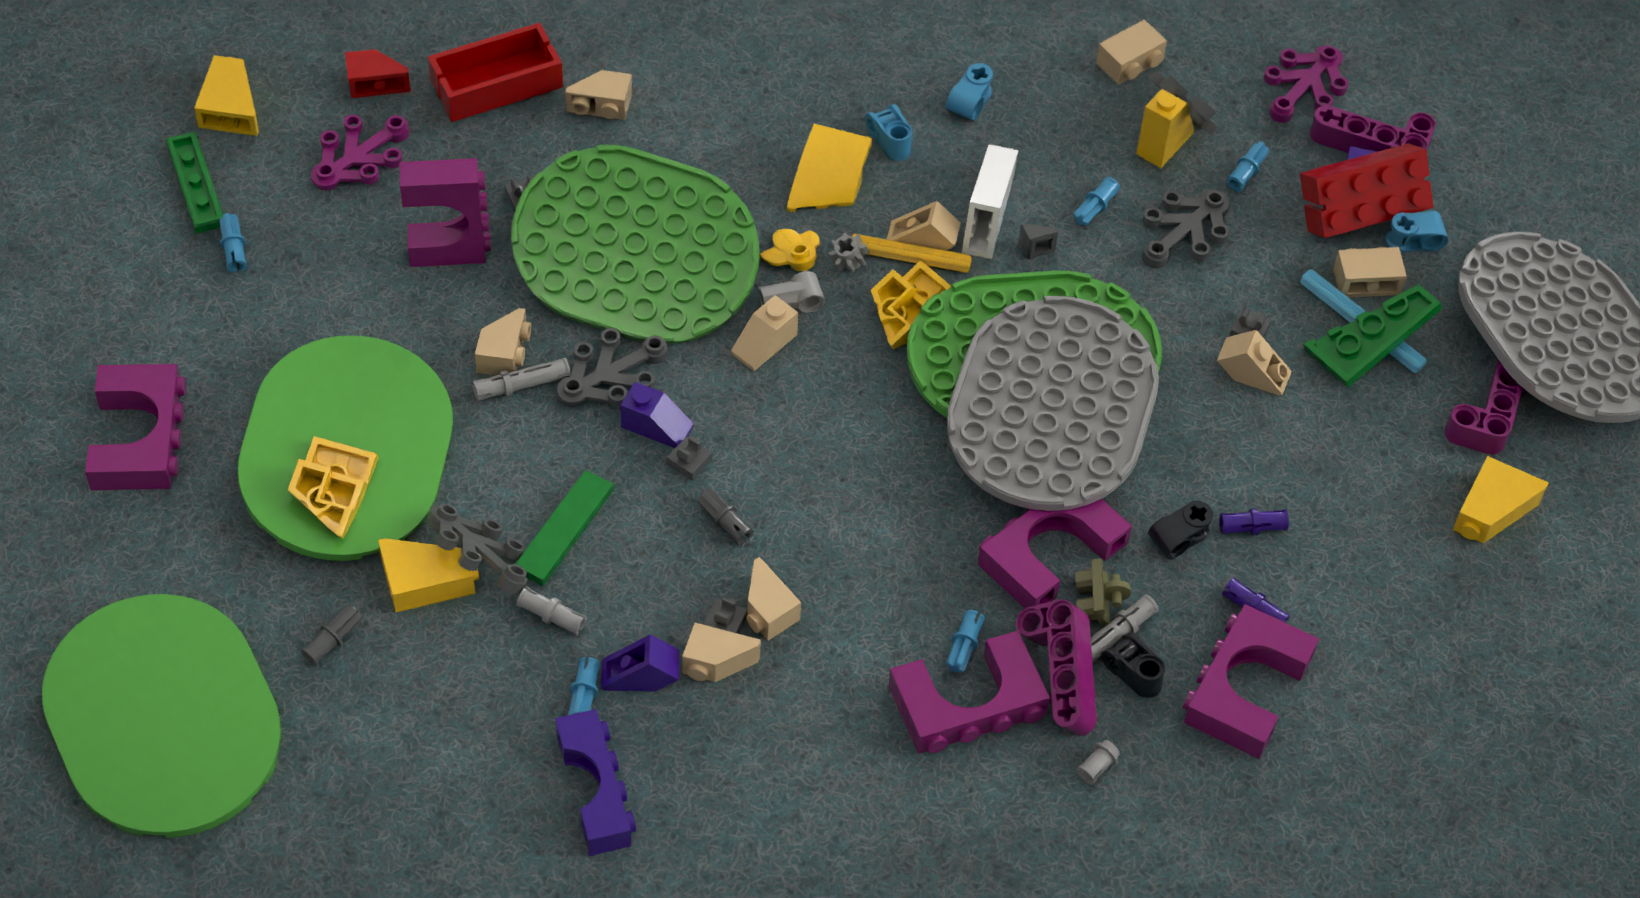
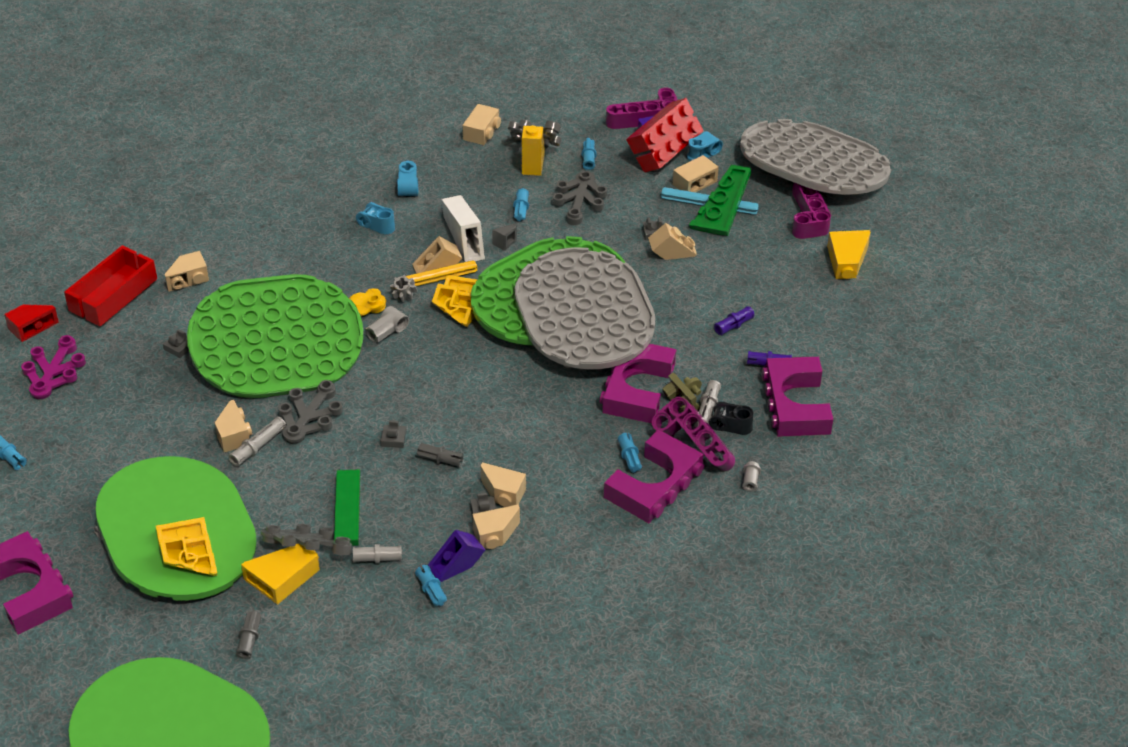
camera: 30 degrees left, 10 degrees down
(453, 185) = (163, 381): magenta arch -> none
(584, 745) = (456, 613): dark purple arch -> none
(654, 416) = (356, 422): dark purple slope -> none
(766, 333) = (388, 349): tan slope -> none
(829, 169) = (357, 251): yellow slope -> none
(1182, 529) = (701, 340): black piece -> none
(1325, 59) = (586, 87): magenta plant -> none

